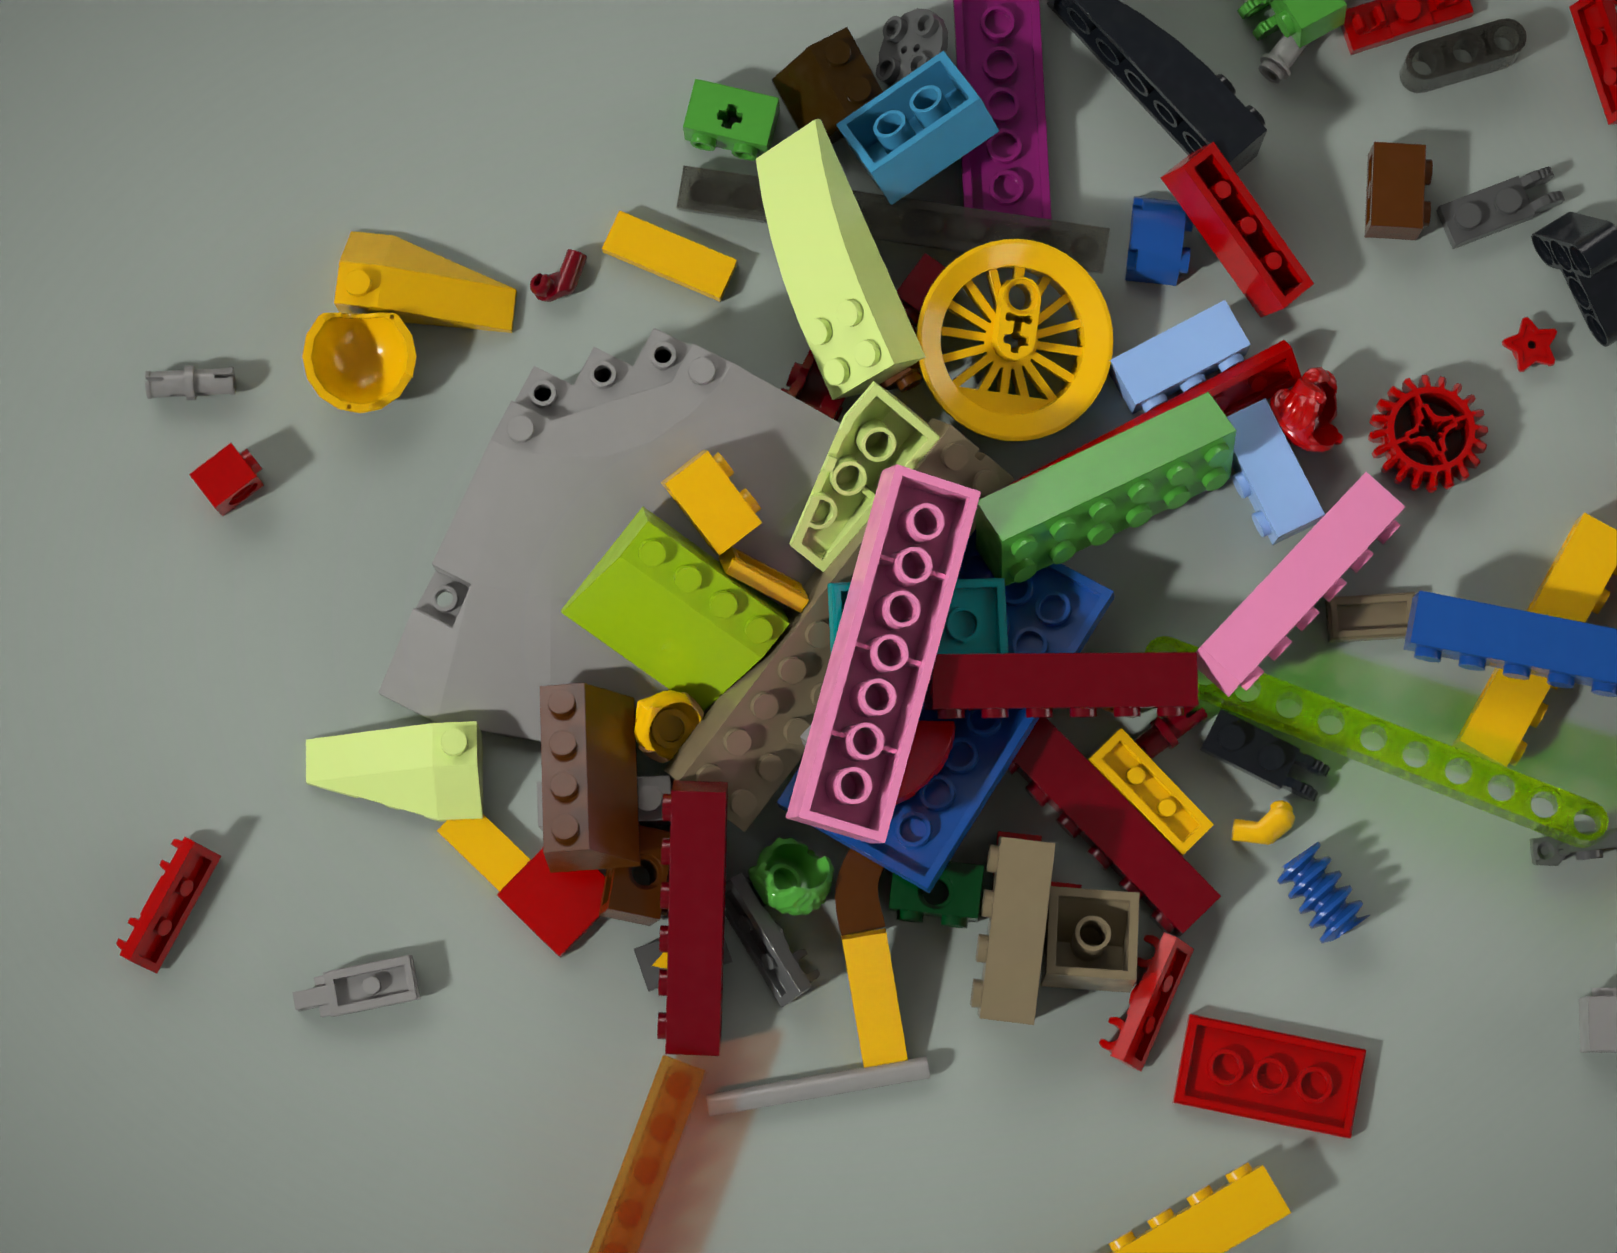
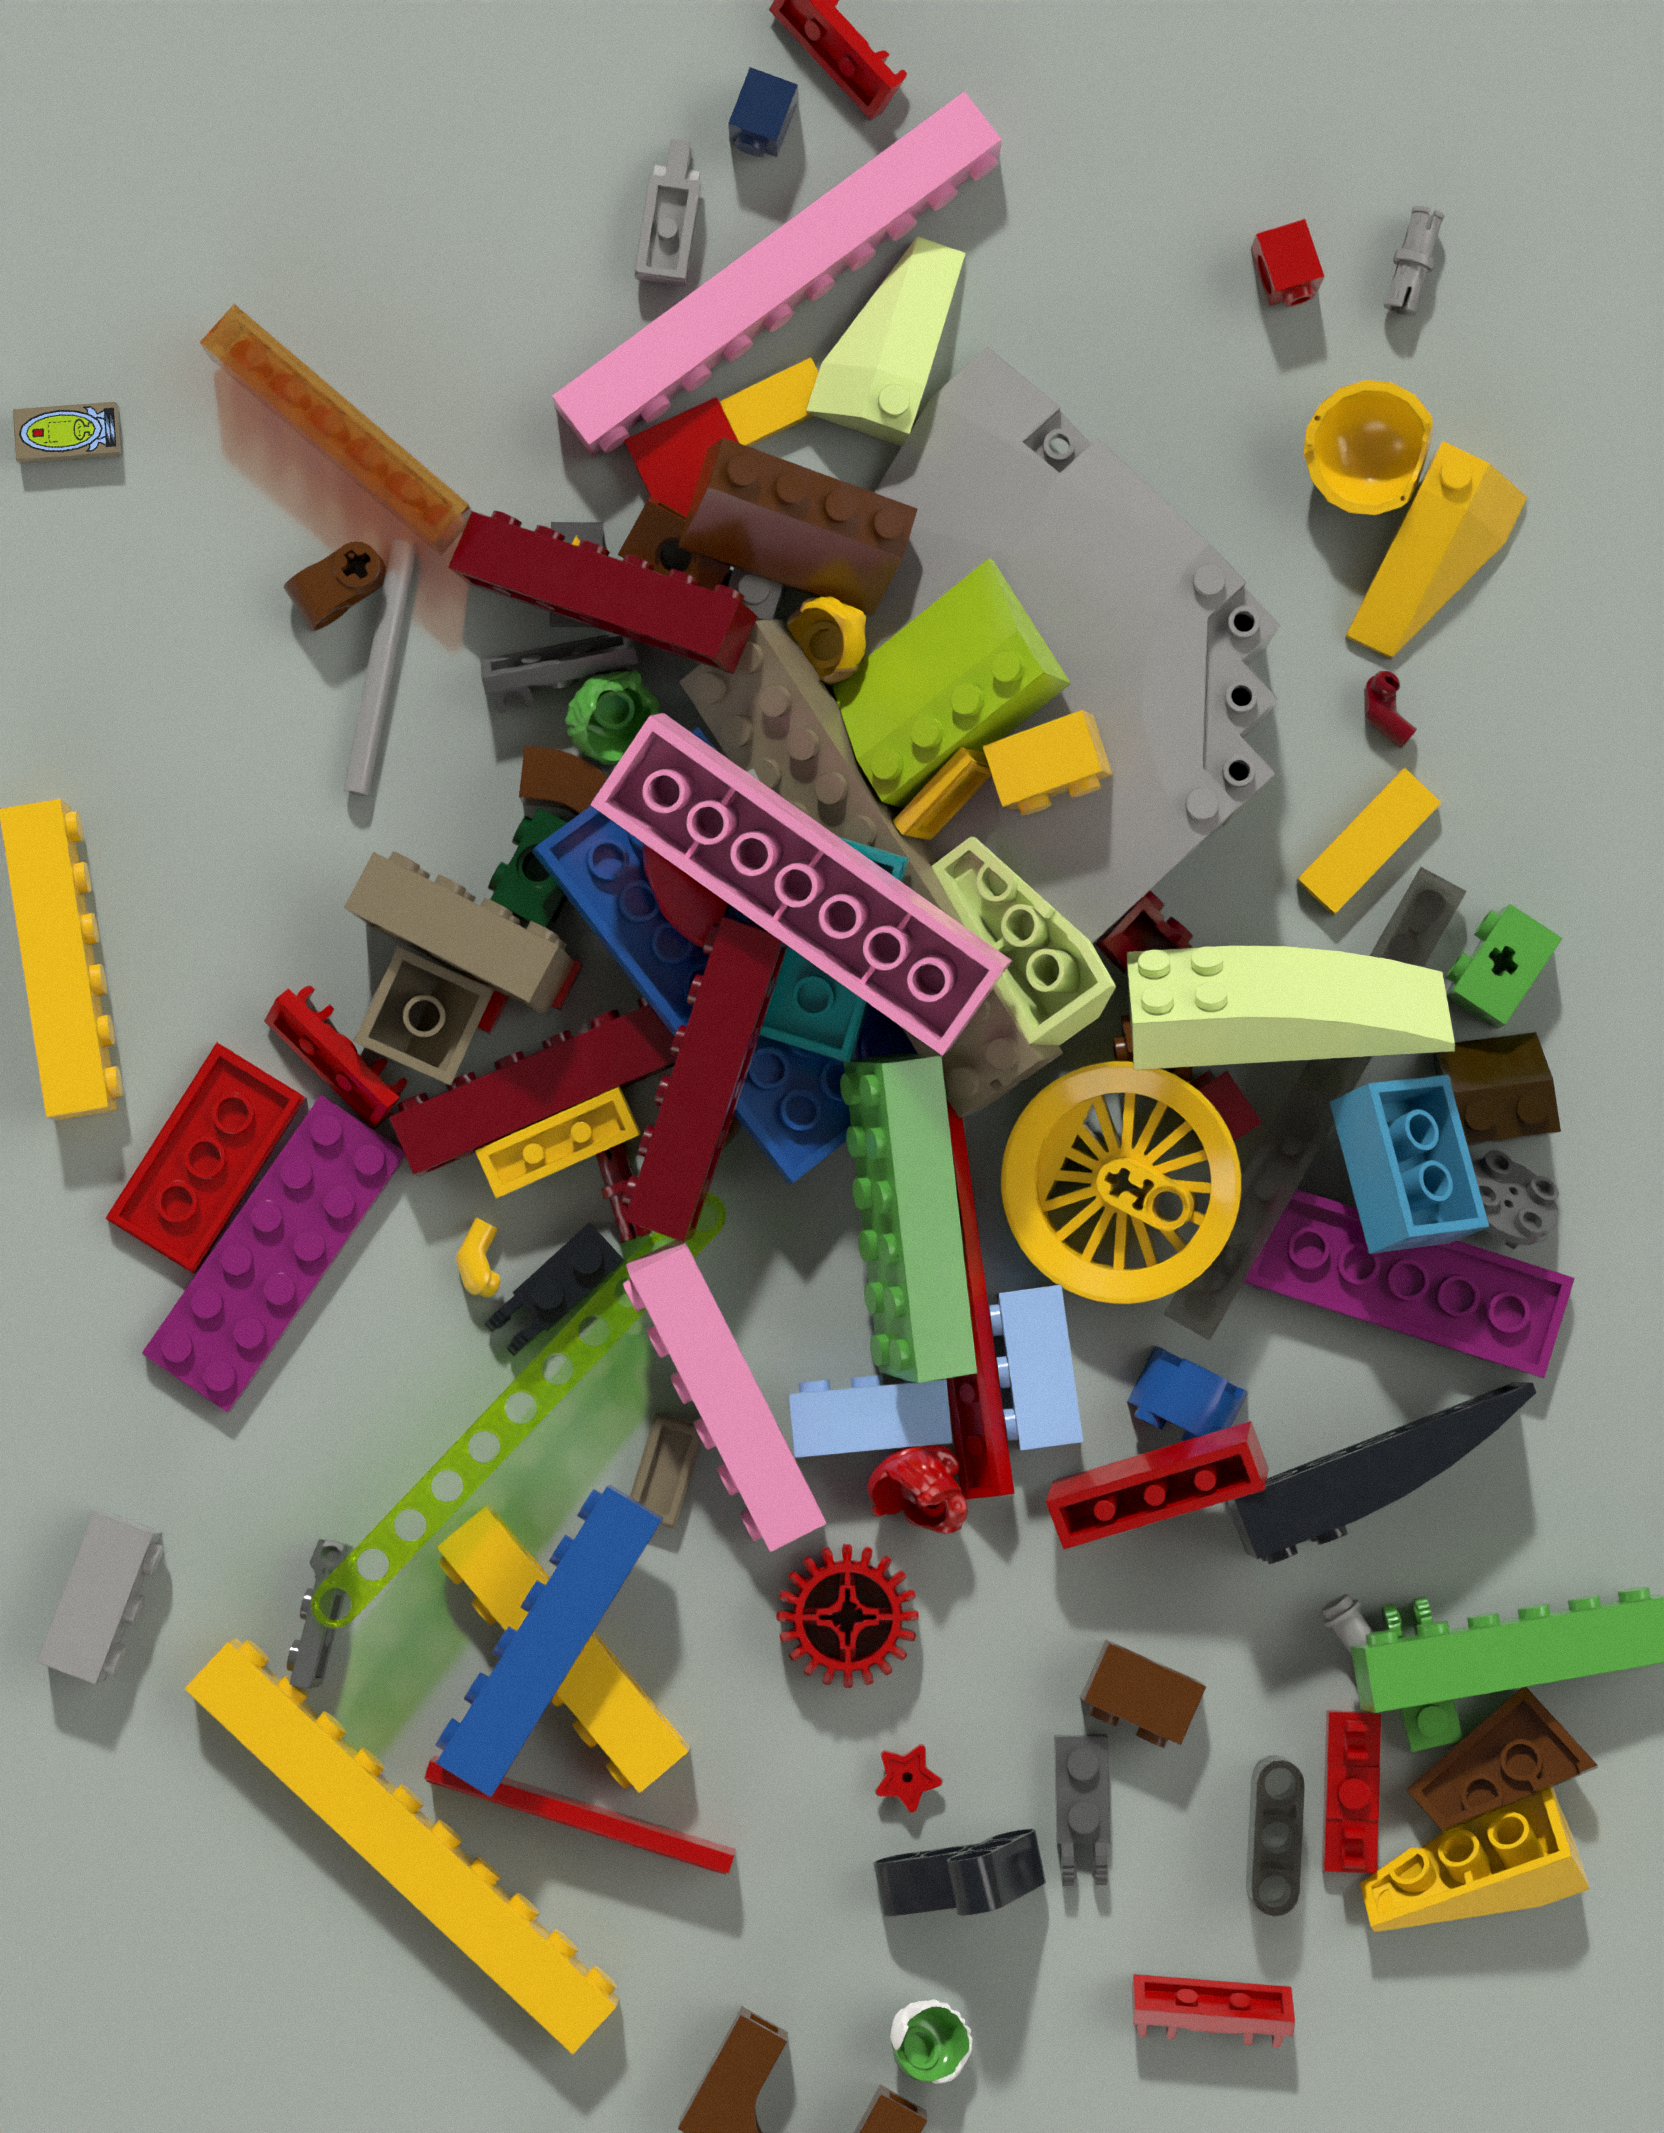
camera: 105 degrees right, 5 degrees up
(248, 943) = (762, 113): none -> dark blue brick
(379, 881) = (779, 275): none -> bright pink brick
(770, 1153) = (330, 589): none -> reddish brown piece
(874, 997) = (449, 758): yellow tile -> none
(1321, 894) = (377, 1289): blue piece -> none
(1324, 990) = (274, 1253): none -> magenta plate

